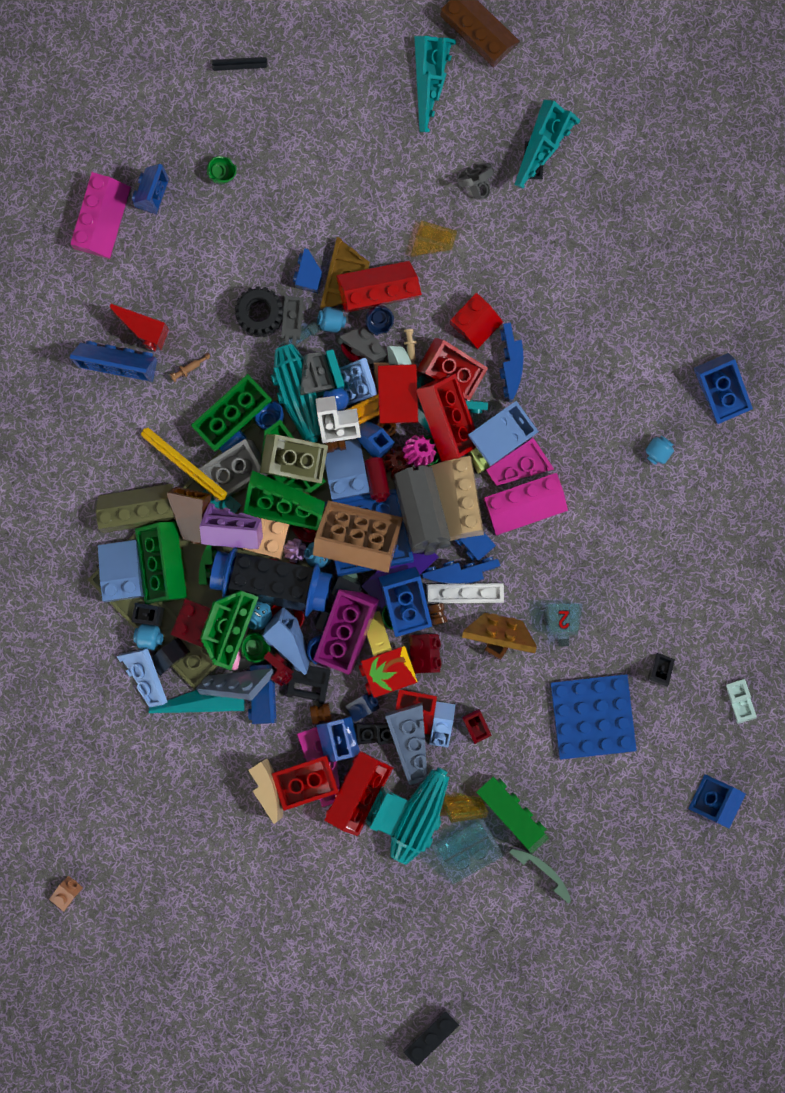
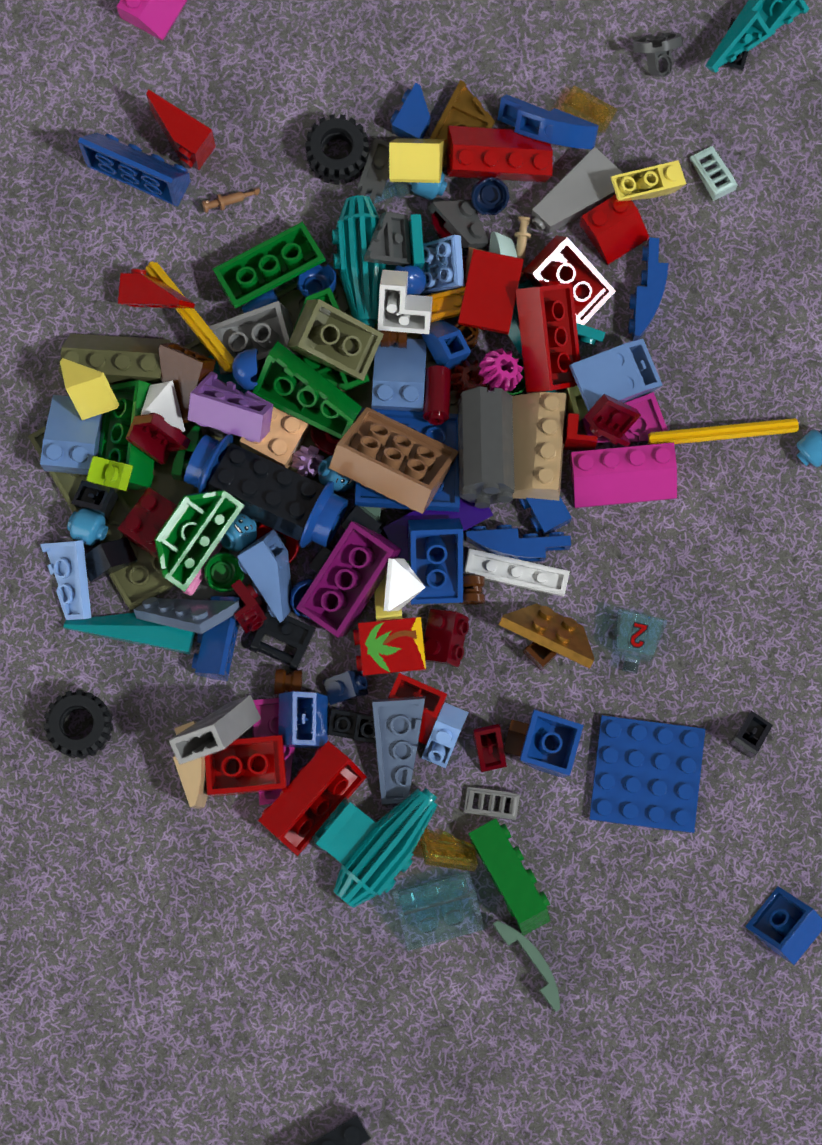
camera: 10 degrees right, 5 degrees down
(123, 538) = (87, 389): none -> light yellow slope
(149, 452) = (146, 291): none -> red slope
(154, 595) = (109, 473): none -> lime slope
(162, 788) = (62, 708): none -> black tyre
(181, 538) = (163, 401): none -> white slope
(181, 561) = (156, 436): none -> dark red bracket
(234, 496) = (245, 368): none -> blue hair
(278, 765) = (215, 730): none -> light grey slope
(319, 306) = (416, 160): none -> light yellow slope
(385, 626) = (401, 584): none -> white slope
(414, 257) = (547, 126): none -> blue slope
(446, 298) = (576, 193): none -> light grey slope
(481, 485) = (575, 441): none -> red panel
(493, 282) = (649, 182): none -> light yellow slope
(496, 714) = (515, 738): none -> reddish brown panel
(502, 757) = (512, 815): none -> light grey slope
(507, 468) = (612, 419): none -> dark red bracket
(520, 713) = (551, 744): none -> blue slope
(538, 271) = (722, 190): none -> light aqua slope
(590, 454) = (724, 432): none -> yellow axle

